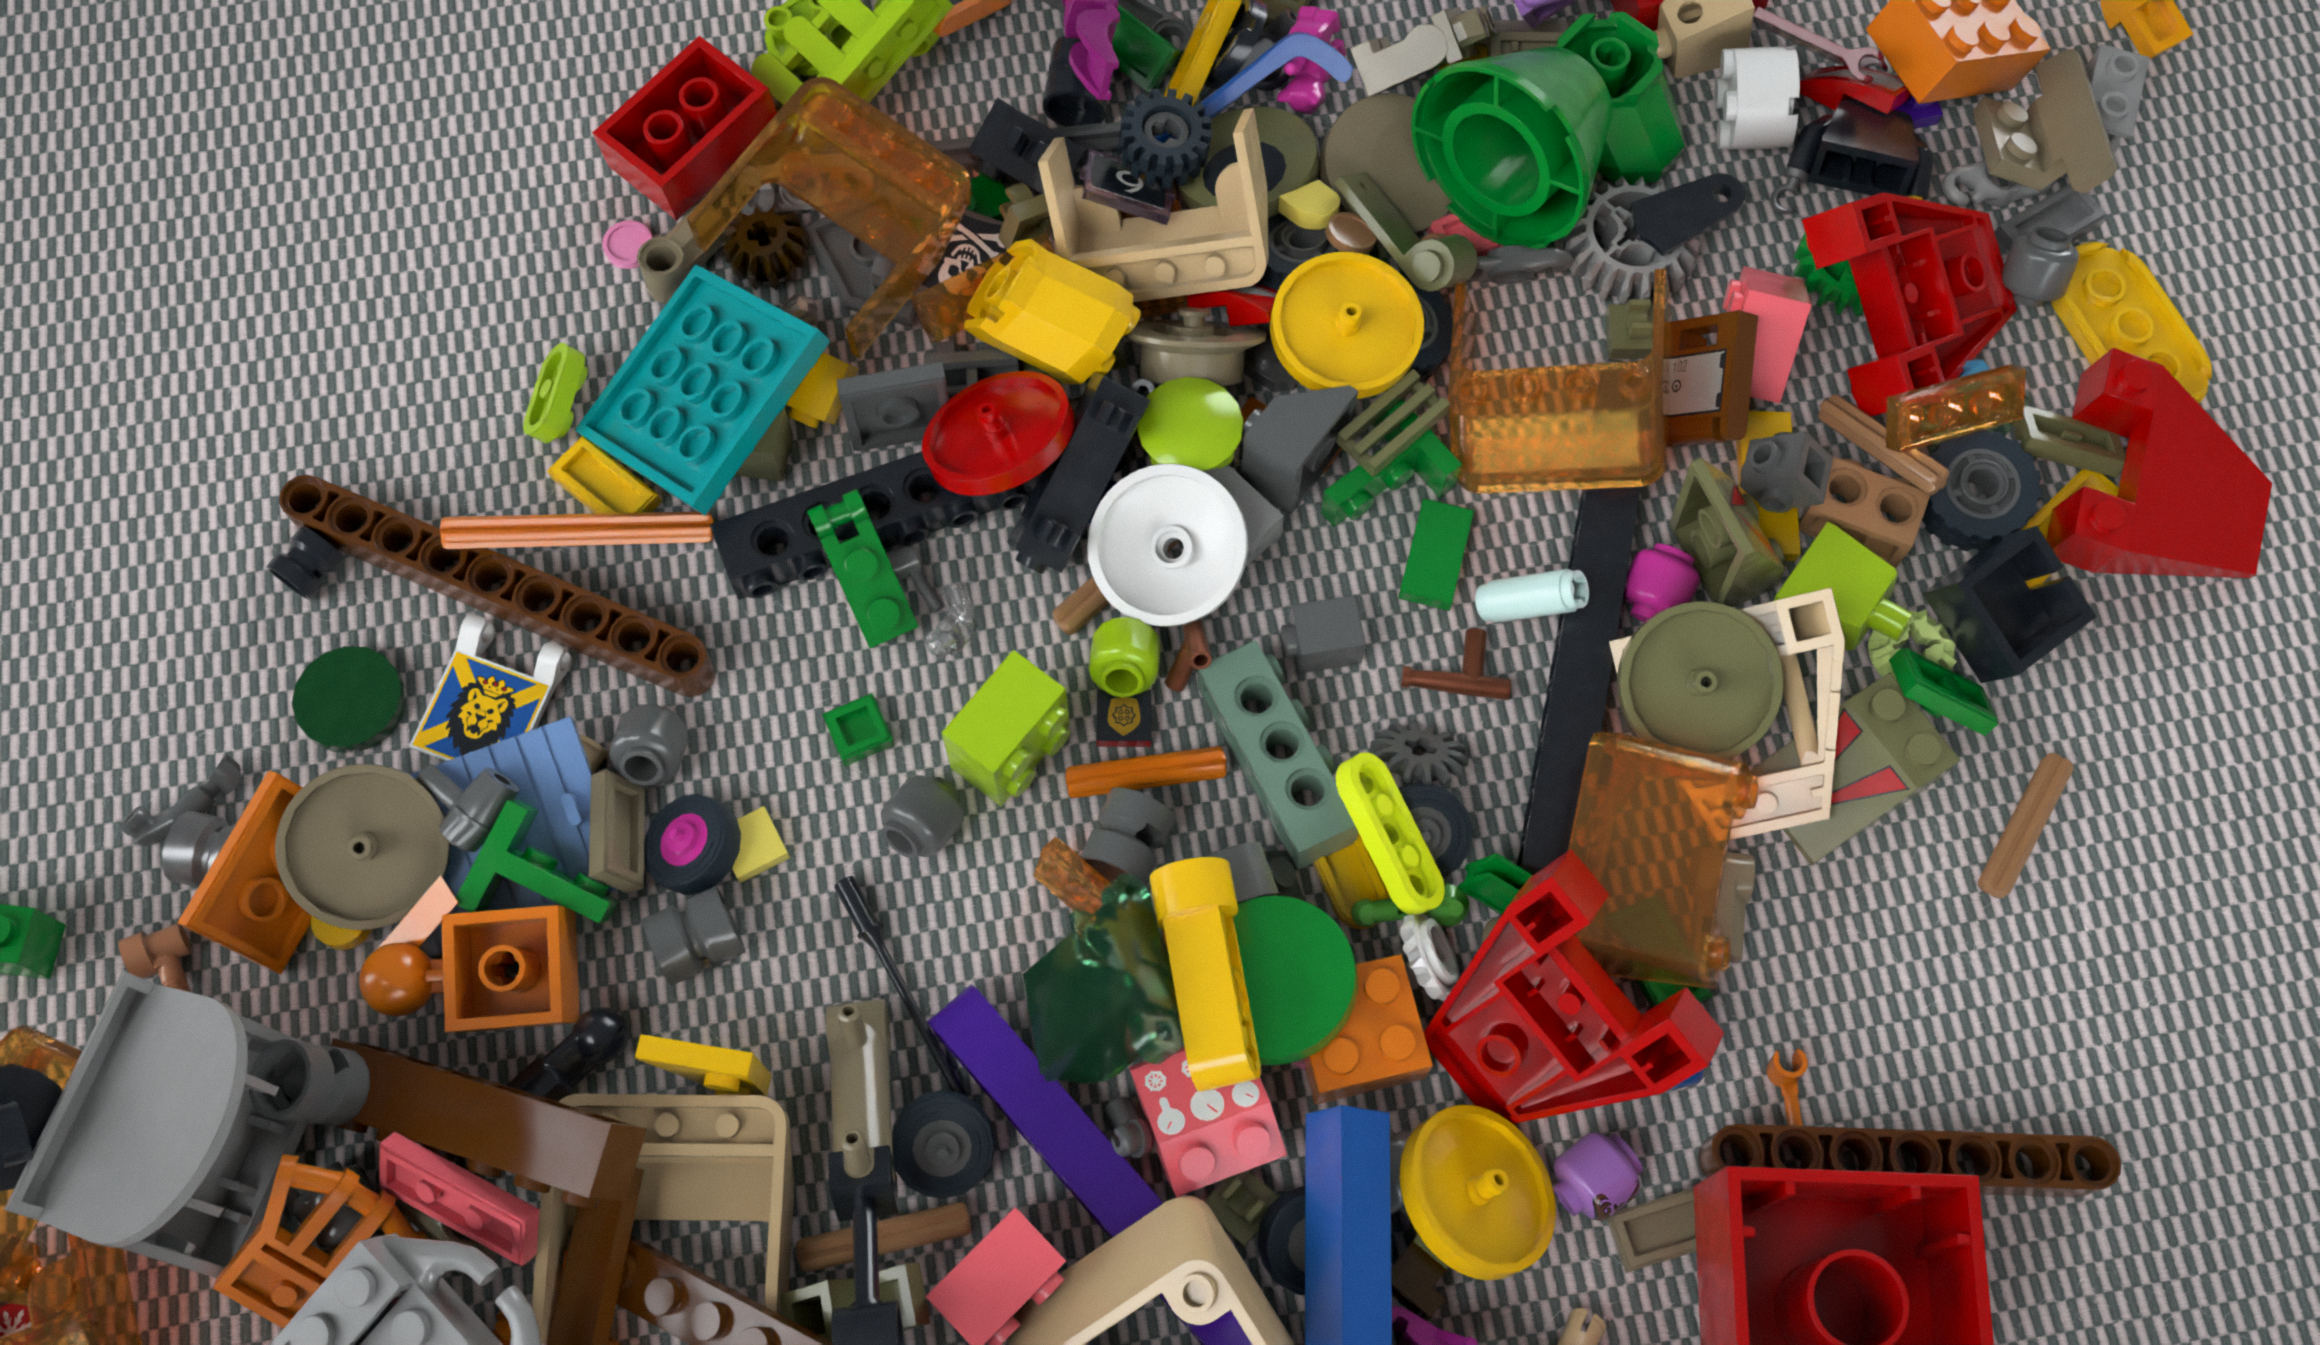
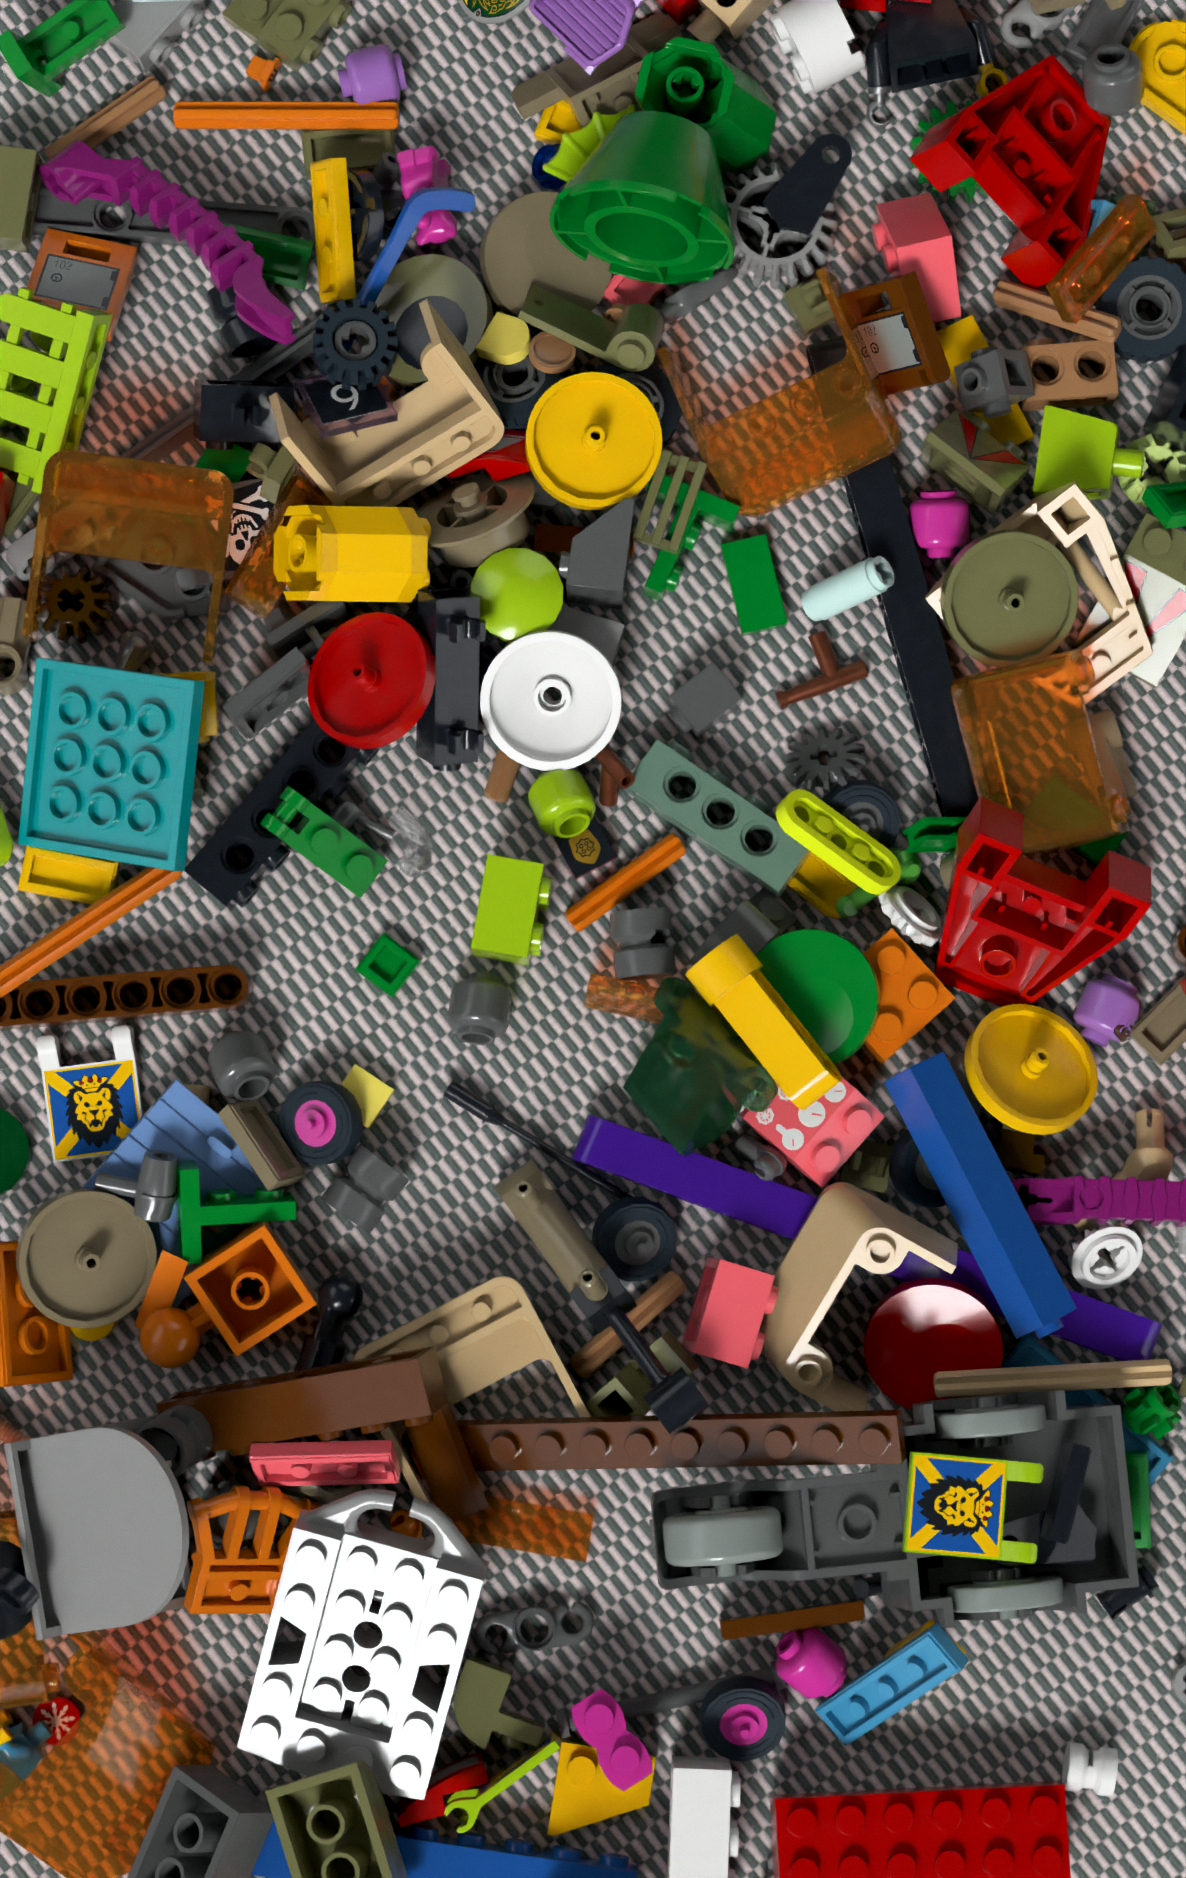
camera: 25 degrees left, 15 degrees up
(713, 1067) = (453, 1275): yellow wing -> none
(1425, 48) = (523, 149): hips -> none

